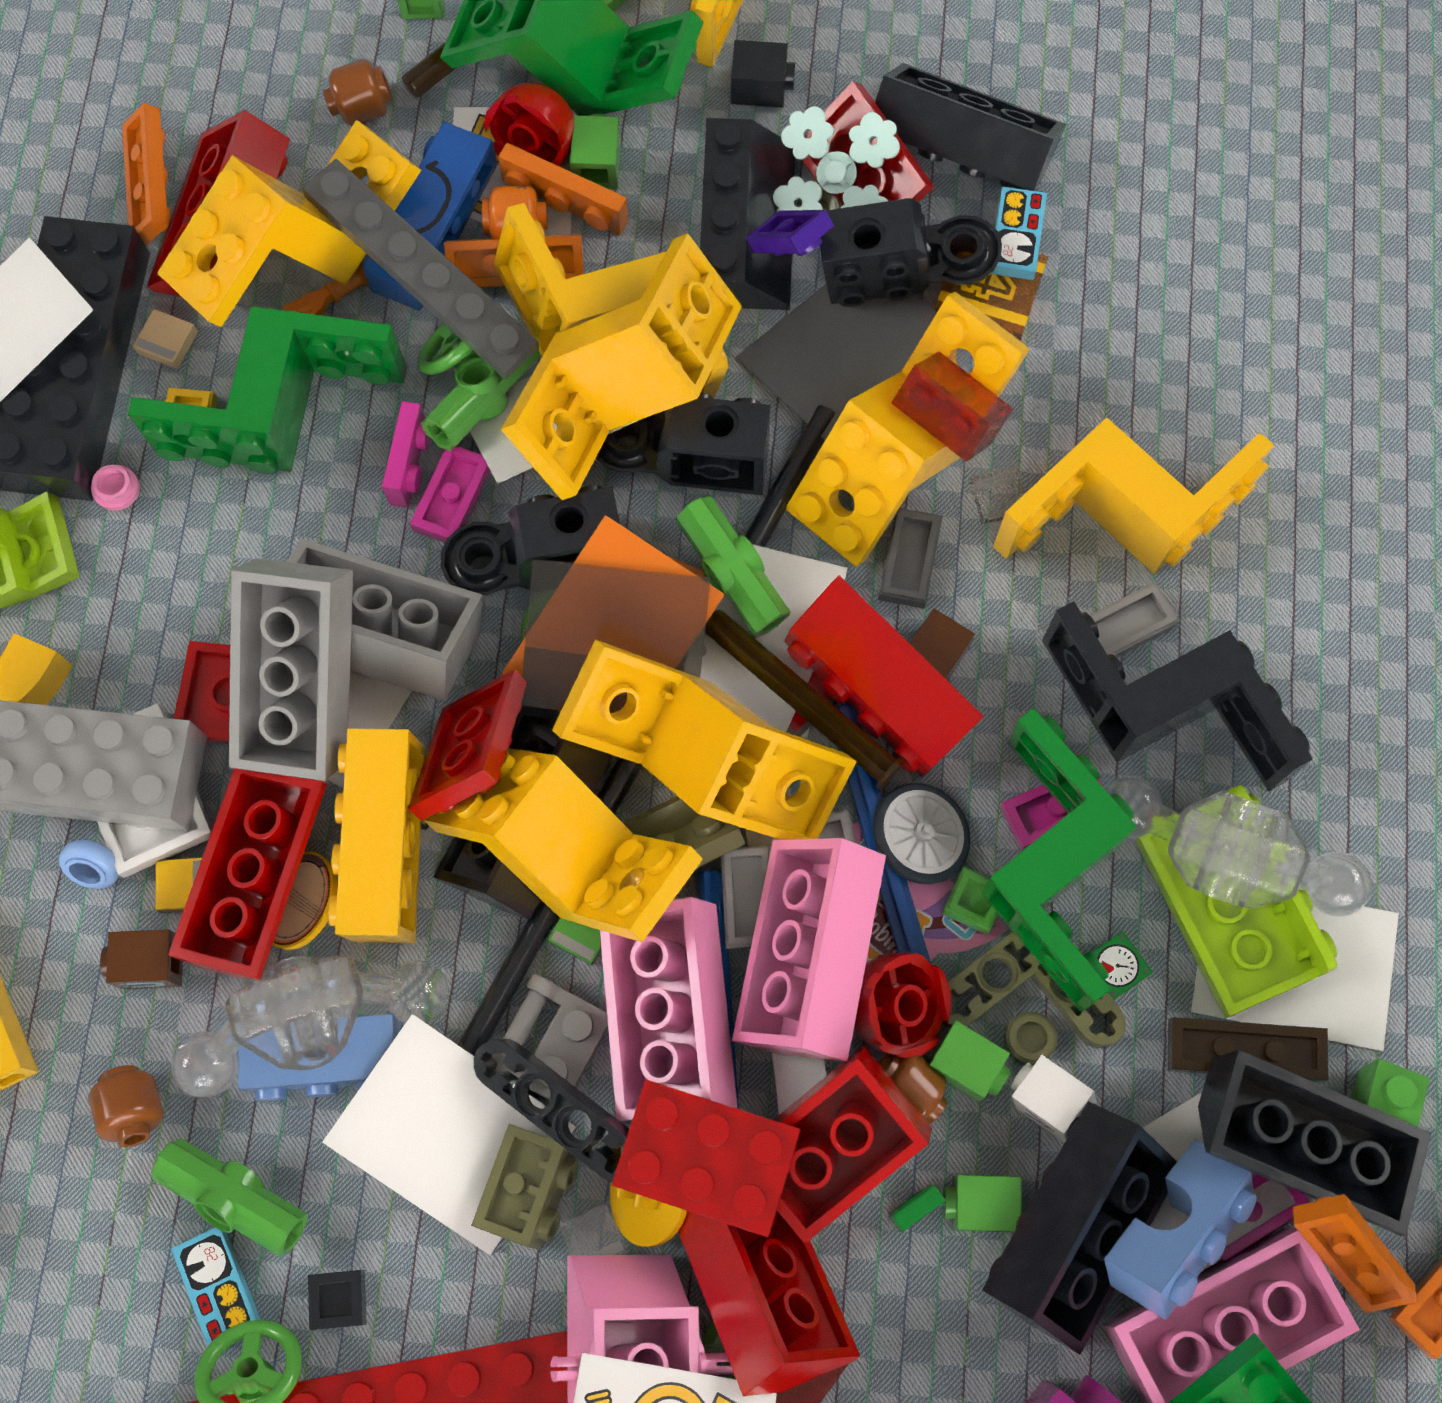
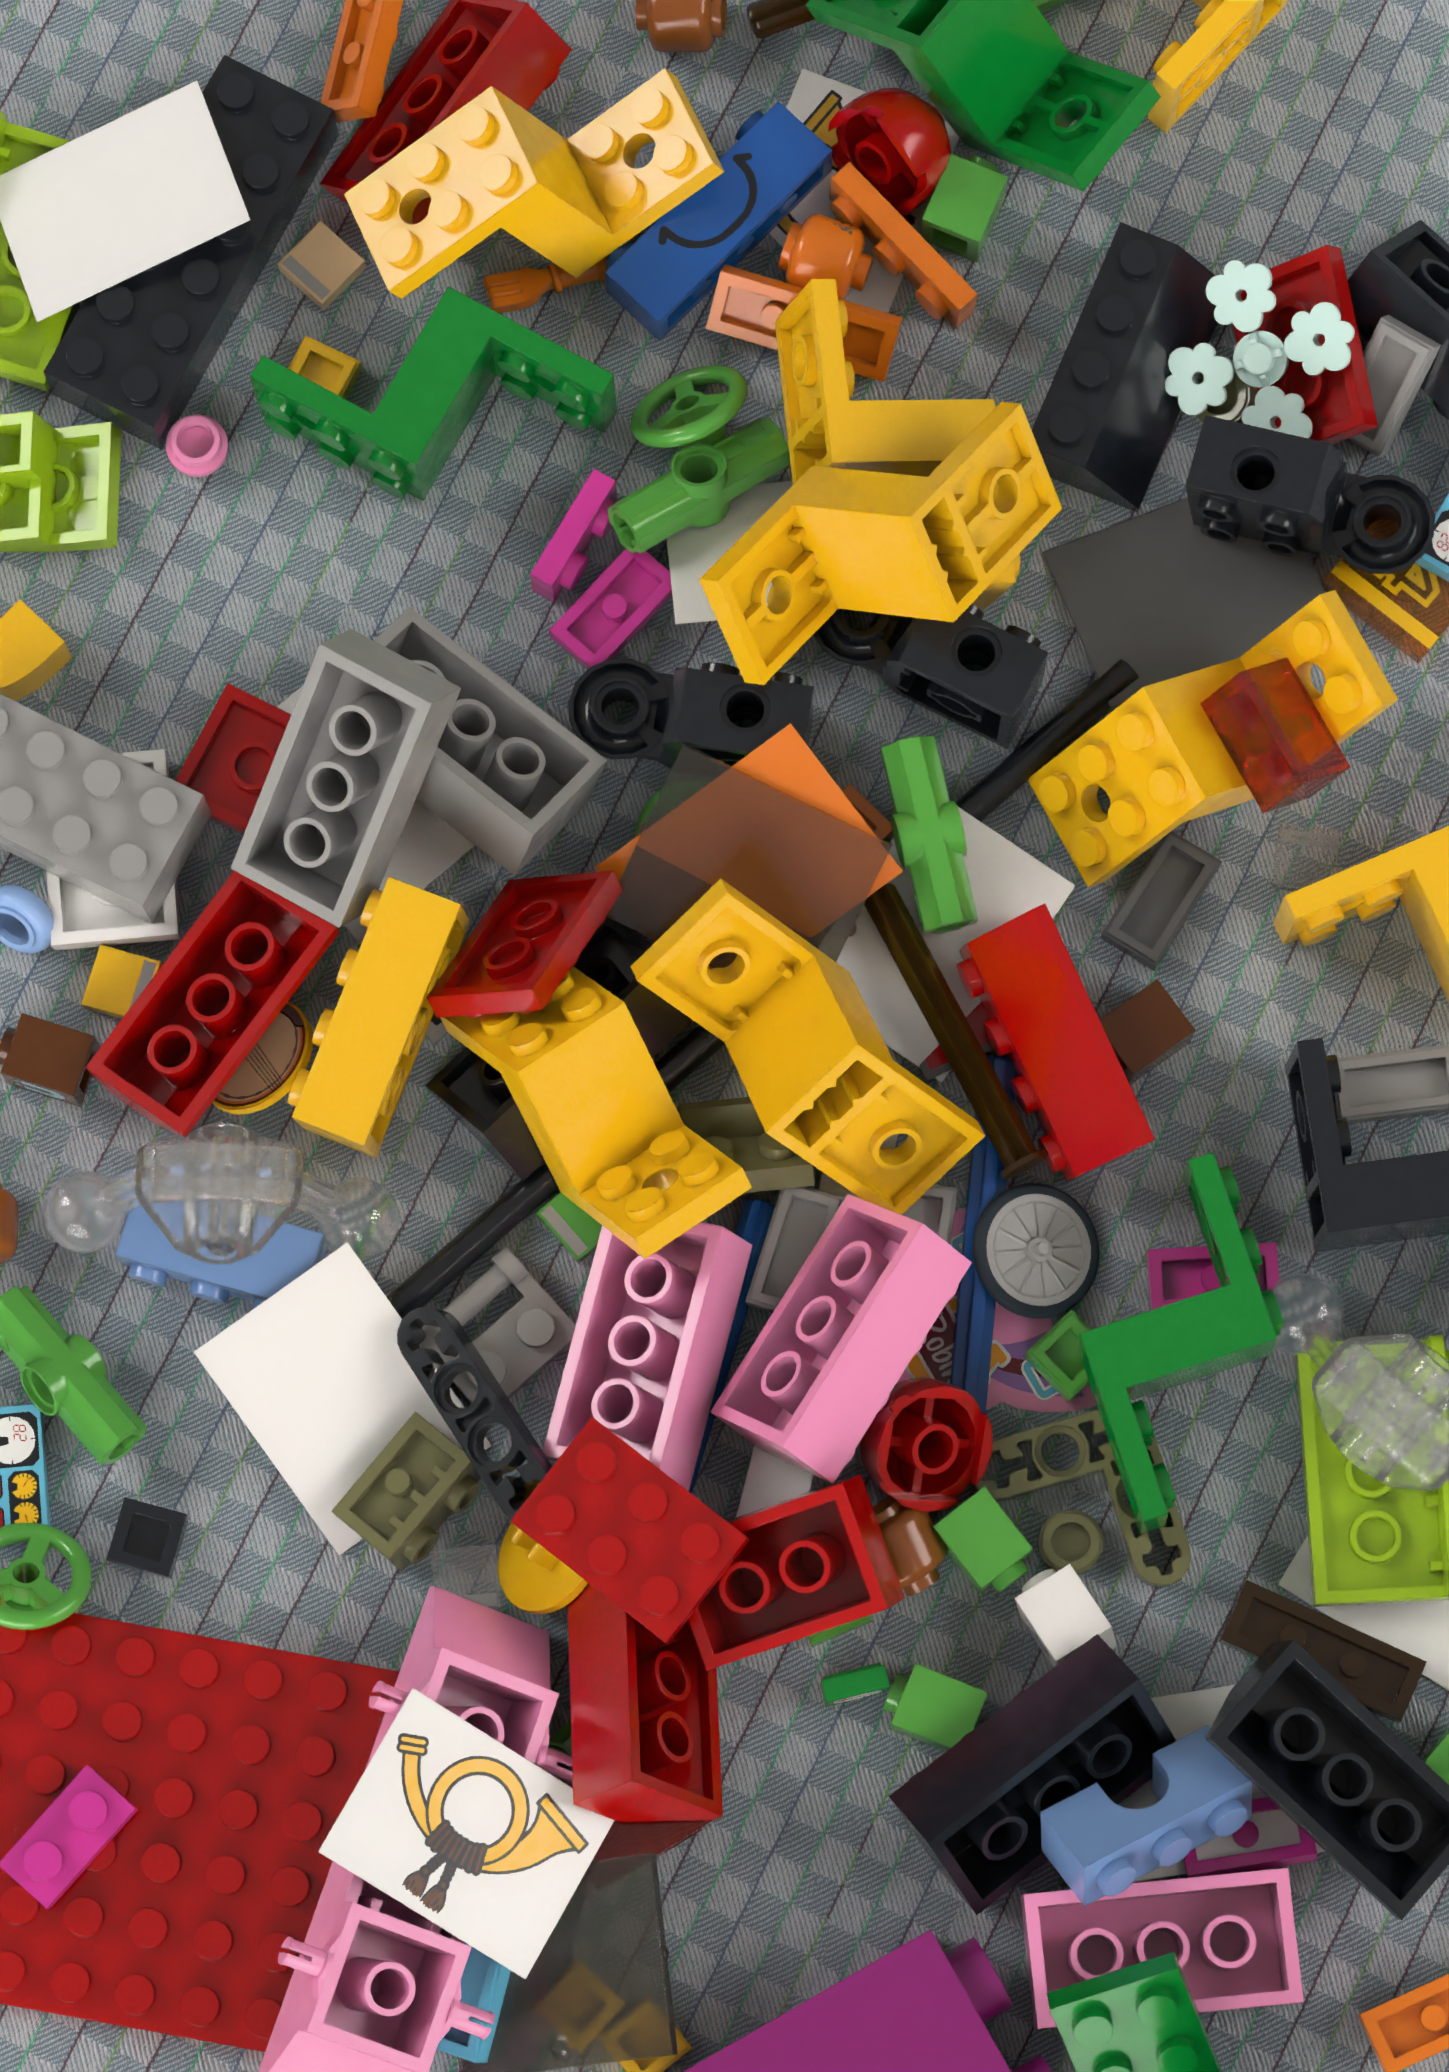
camera: 20 degrees right, 5 degrees up
(420, 268) = (676, 308): dark grey plate -> none
(761, 73) = (1222, 173): black brick -> none
(791, 232) = (1161, 429): dark purple plate -> none
(931, 147) = (1395, 368): none -> light grey tile
(1122, 964) = (1208, 1497): tile -> none
(1354, 1253) = (1335, 1919): orange plate -> none

